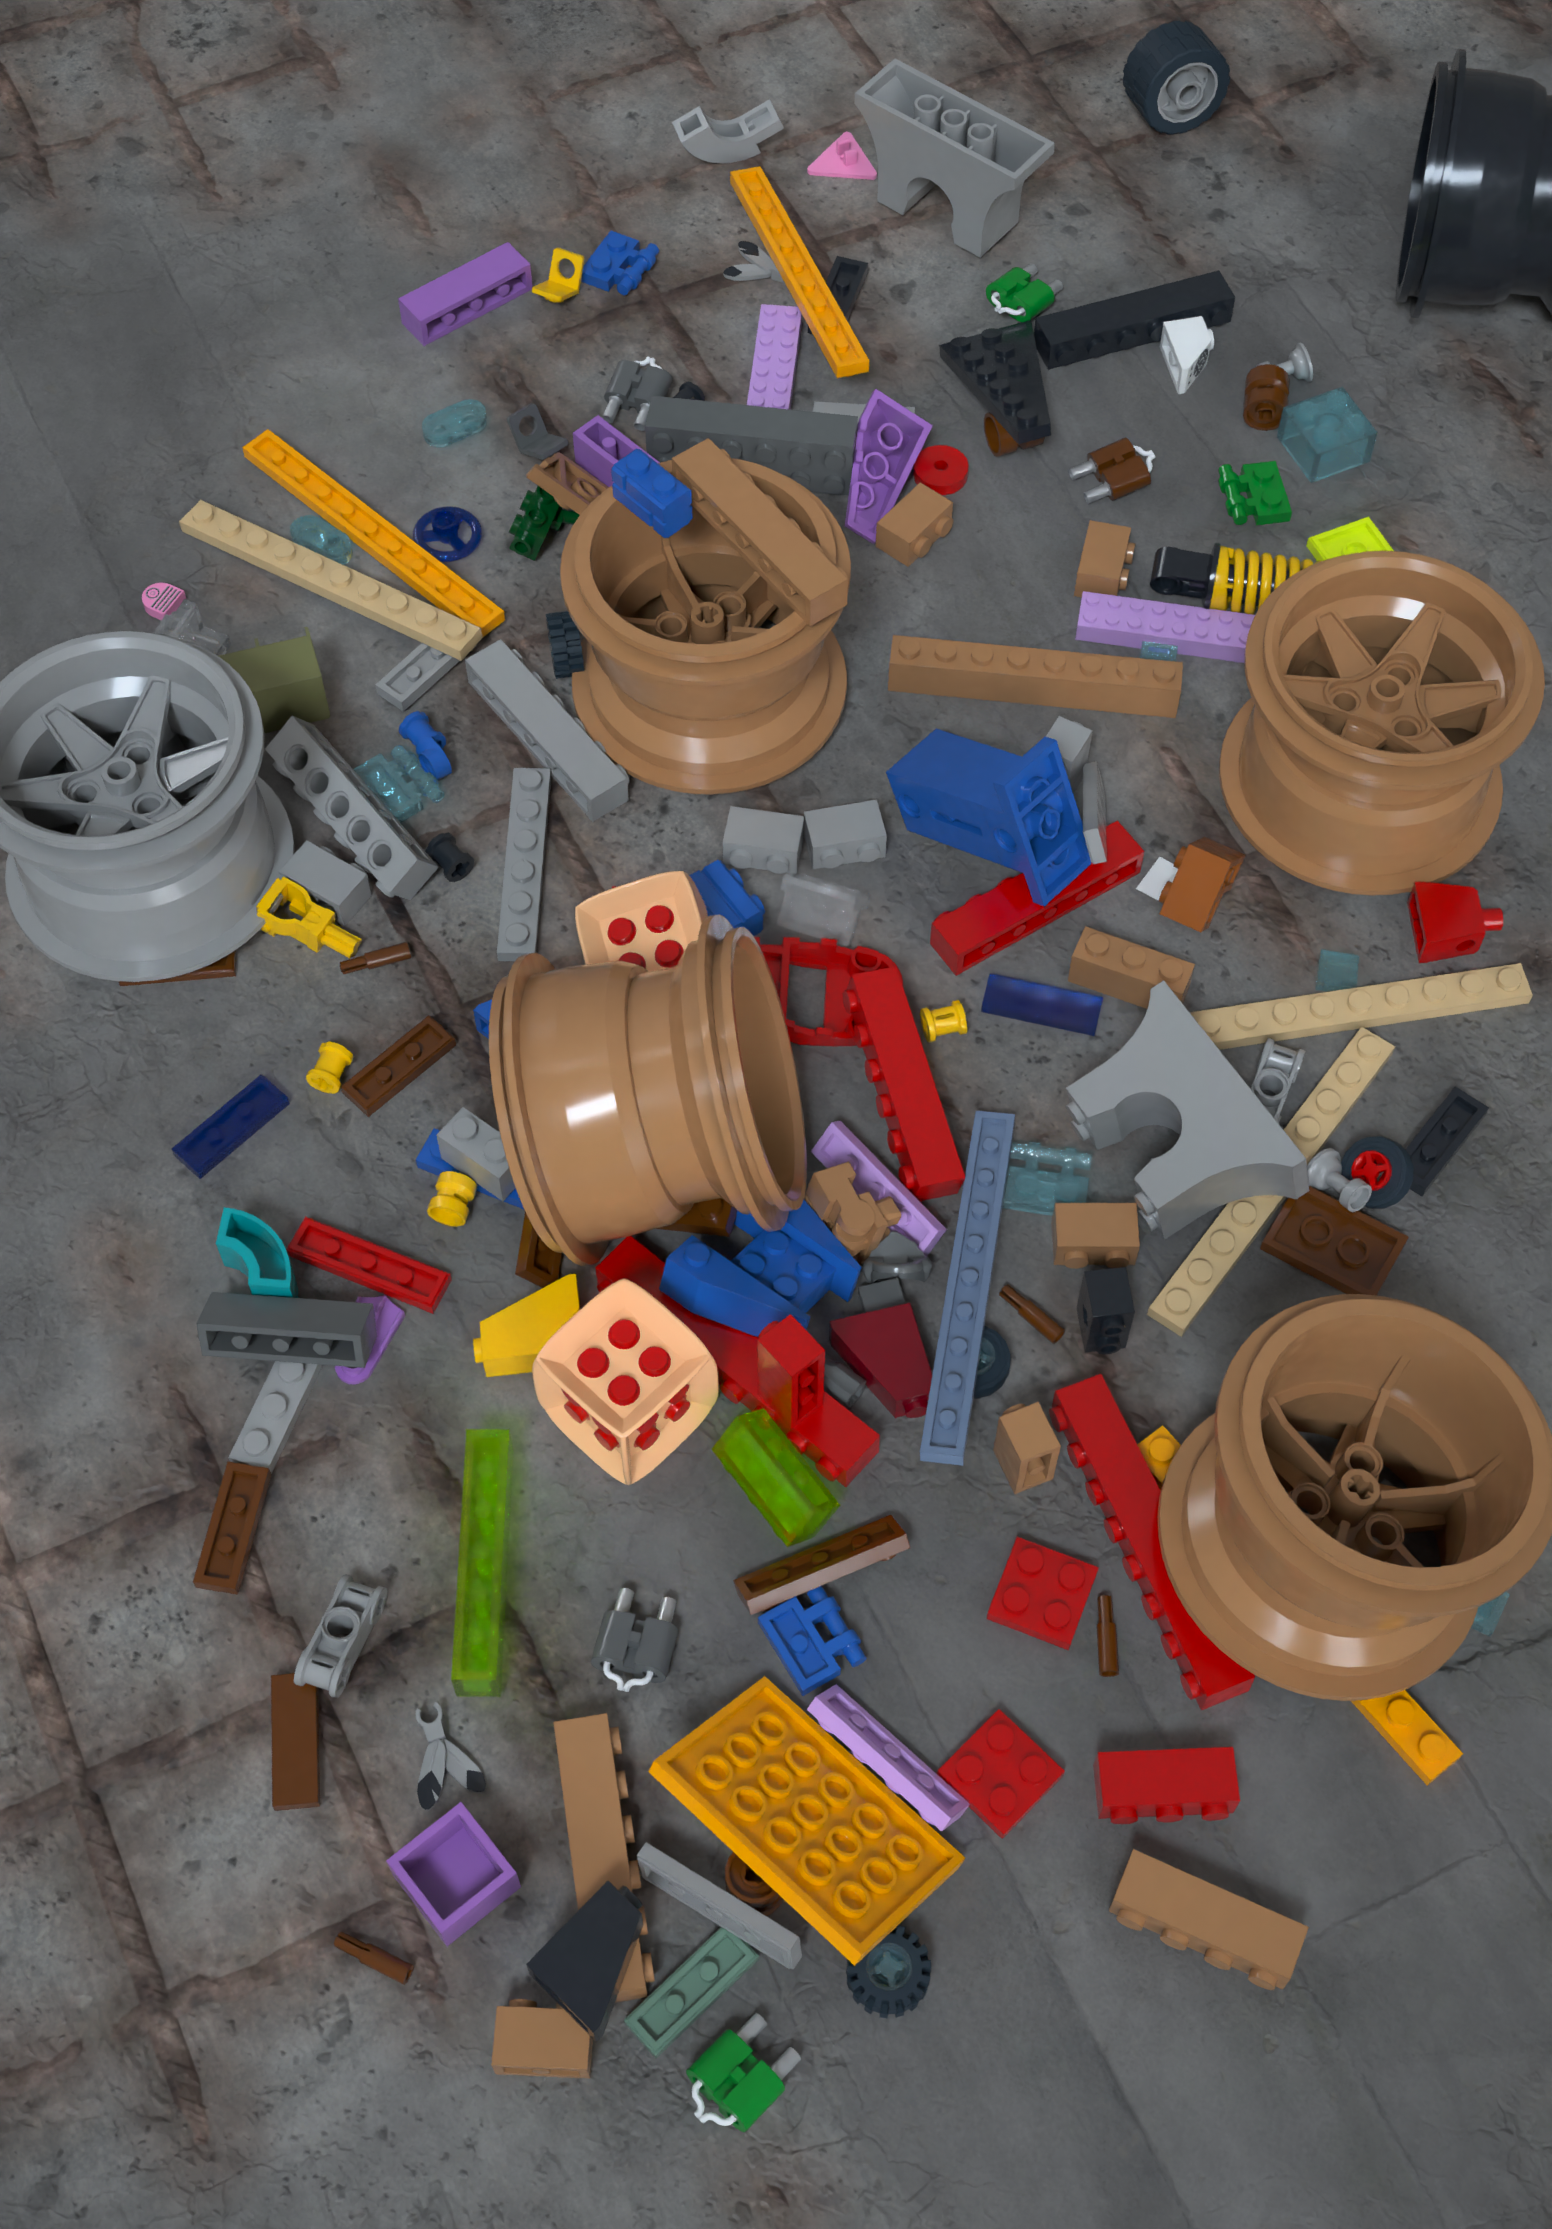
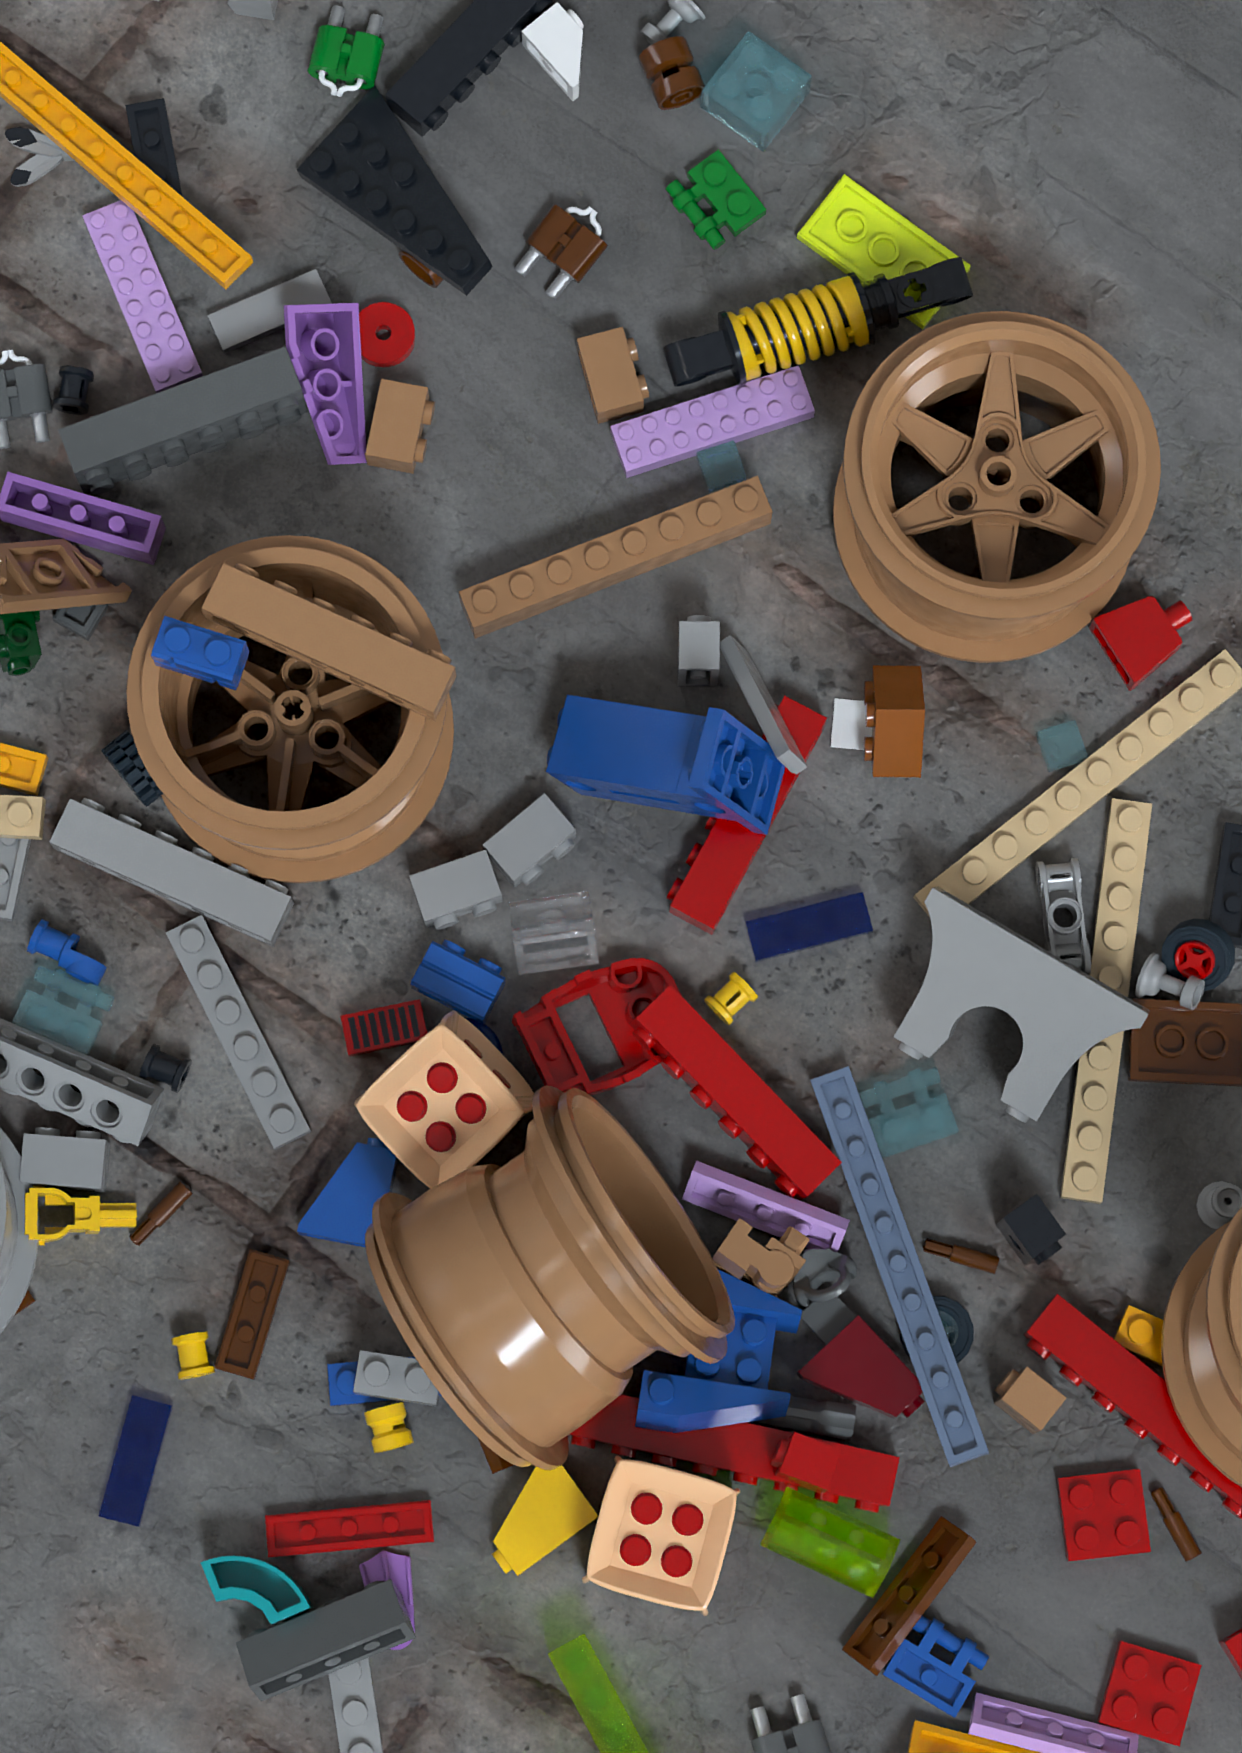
camera: 30 degrees left, 20 degrees up
(1095, 1234) = (981, 1150): medium nougat brick -> none
(1126, 968) = (877, 855): medium nougat brick -> none

